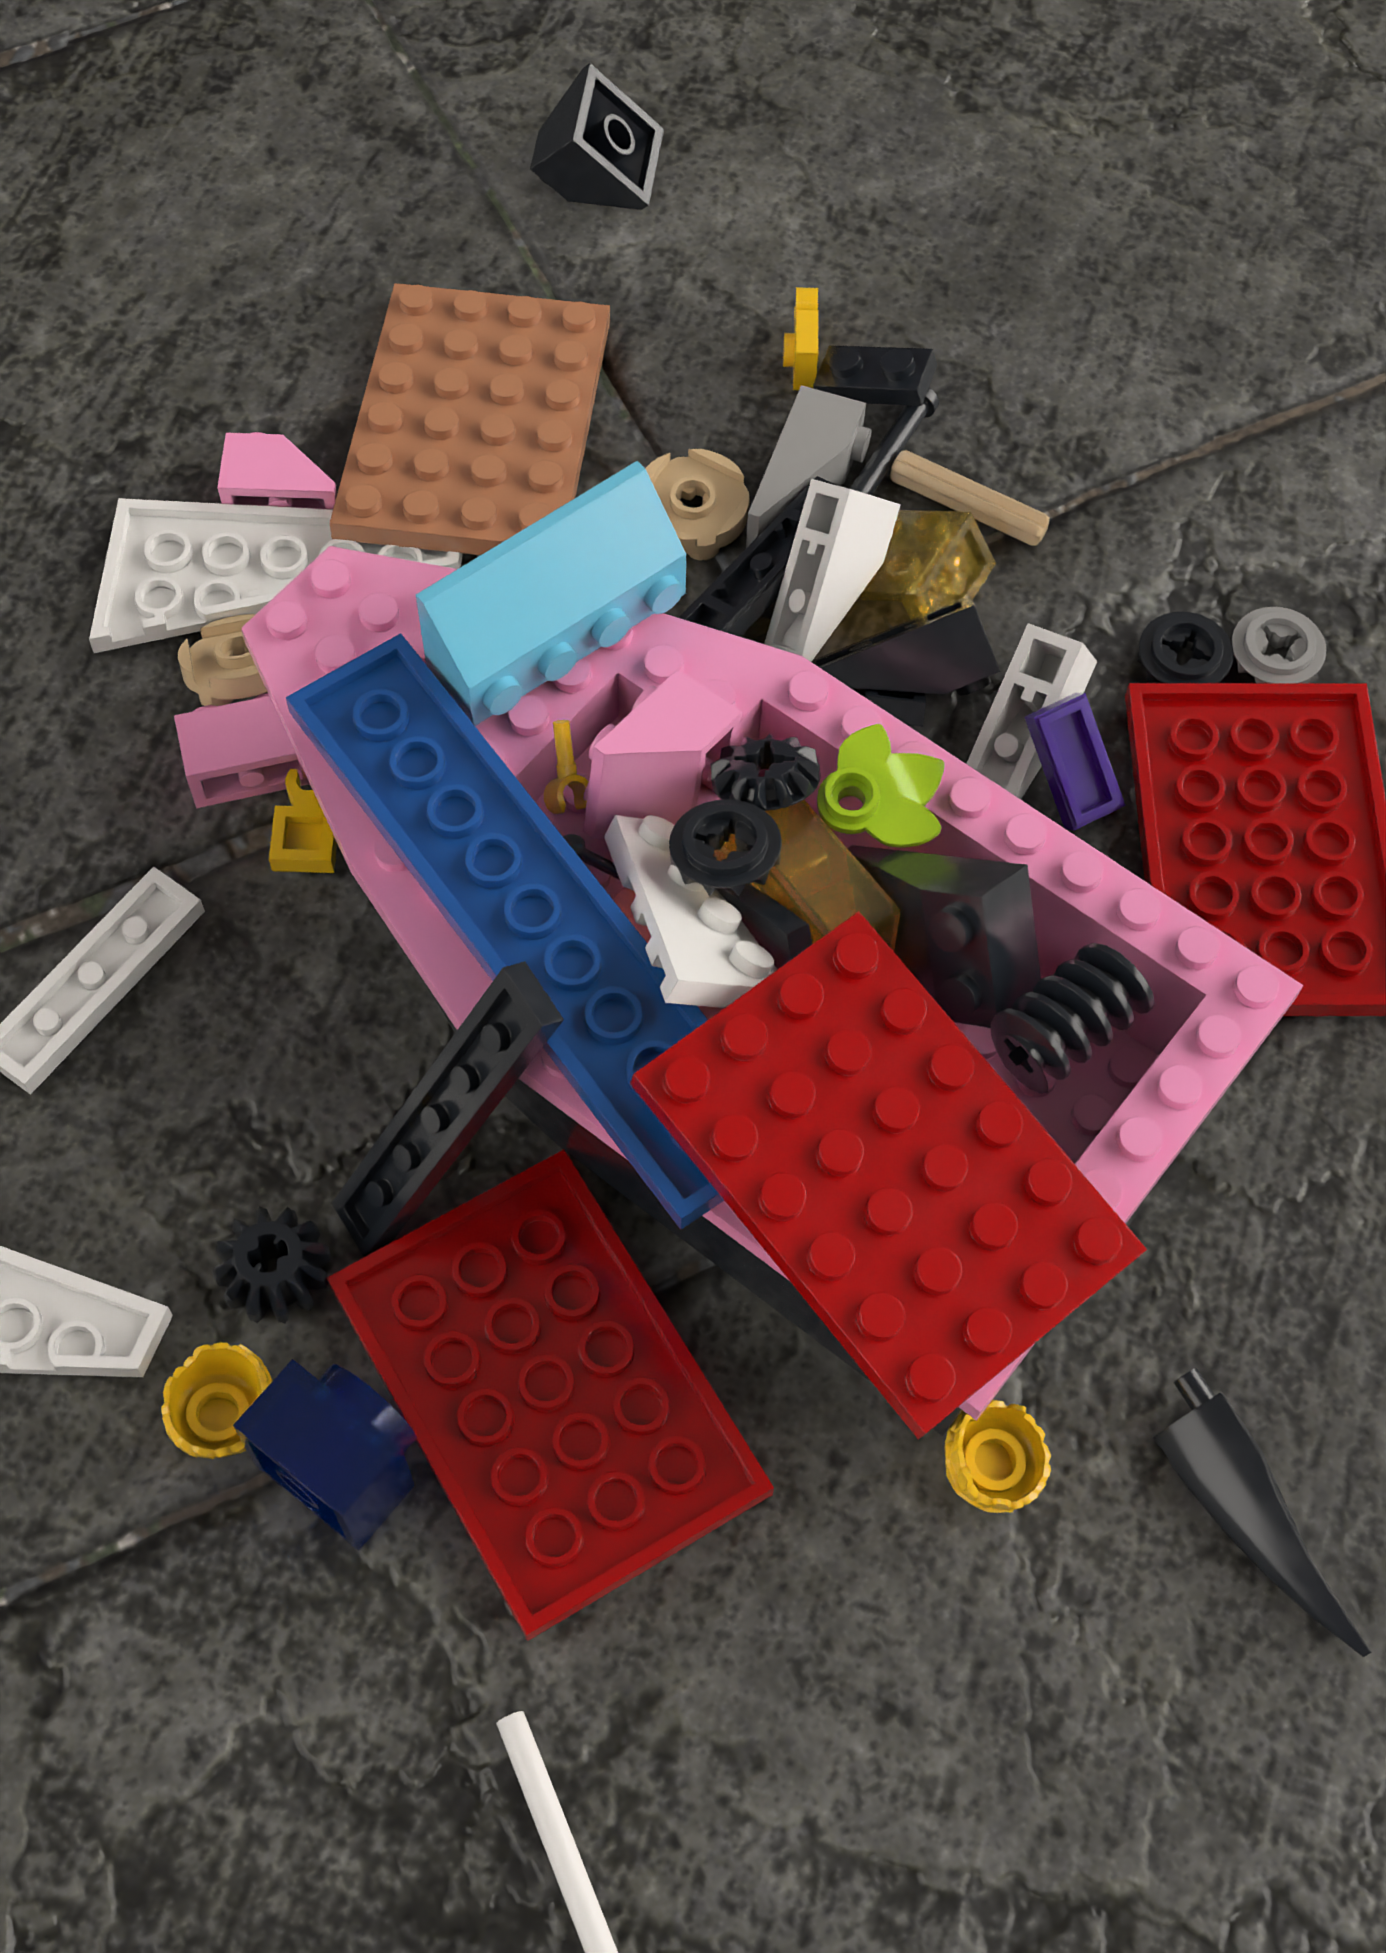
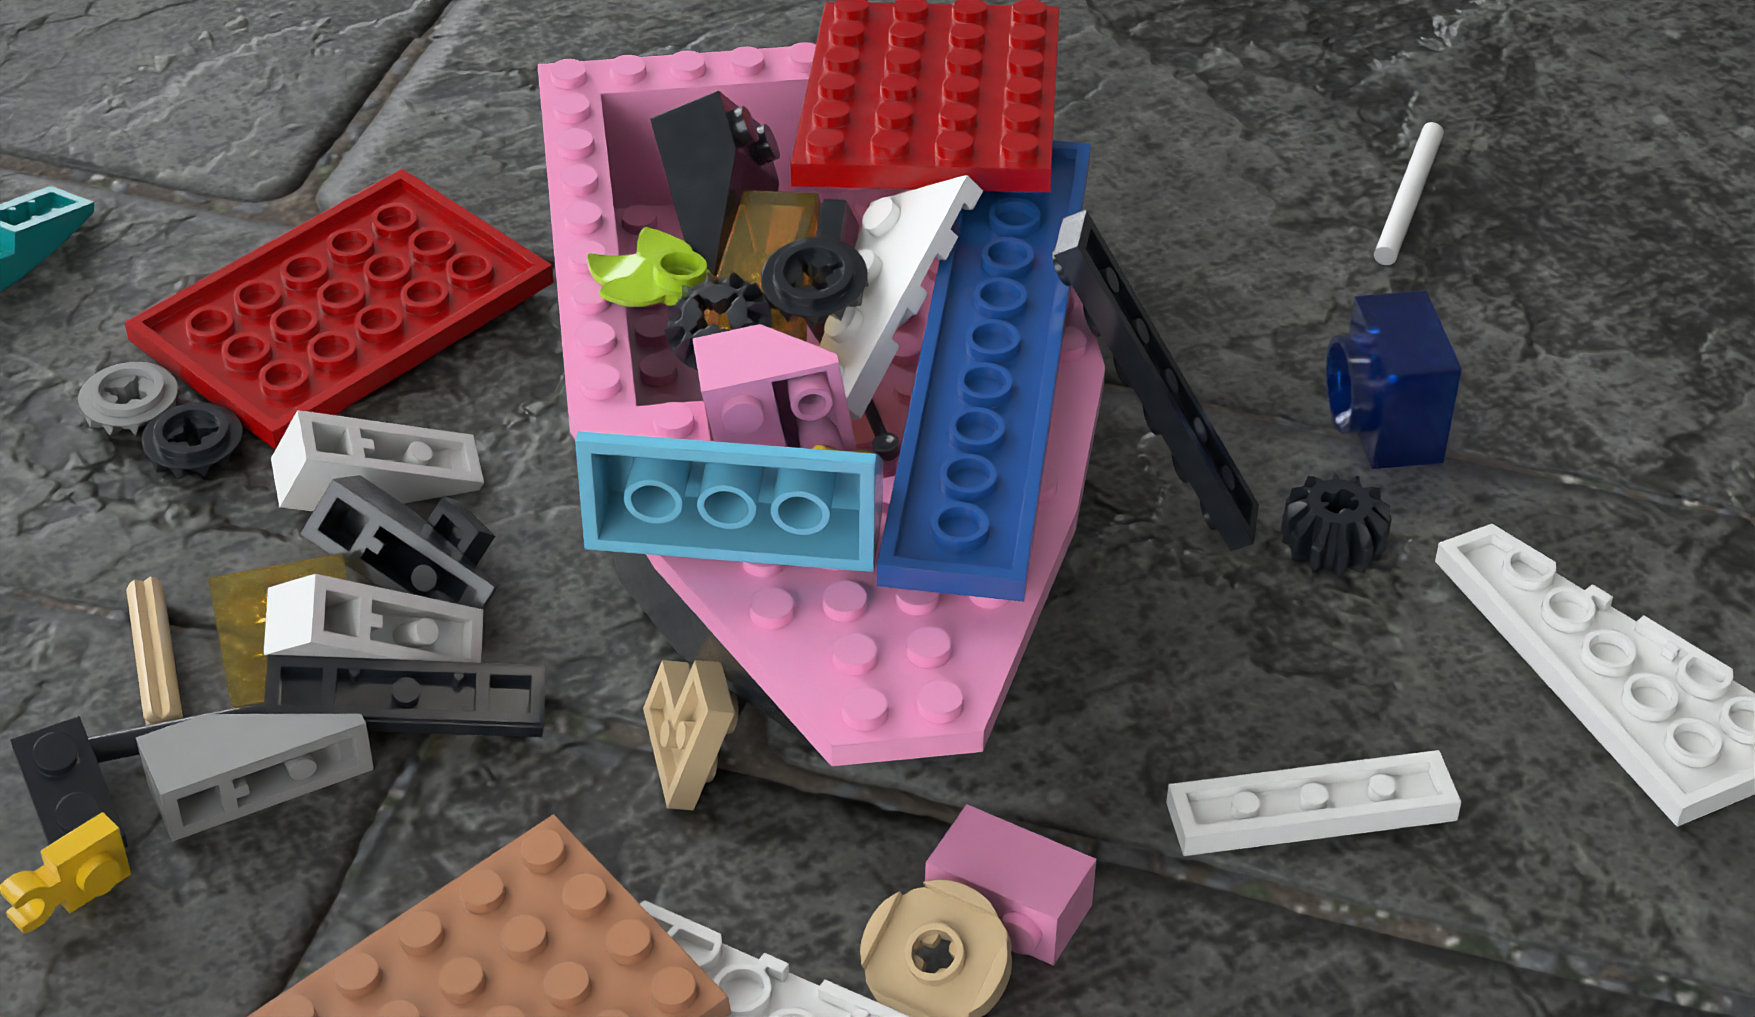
camera: 135 degrees left, 20 degrees down
(210, 1397) = (1447, 474): yellow hair -> none
(301, 833) = (1024, 786): yellow plate -> none
(549, 1392) = (1248, 339): red plate -> none
(724, 500) = (378, 847): tan plate -> none
(1069, 1013) = (753, 87): black piece -> none
(1074, 761) = (392, 405): dark purple tile -> none

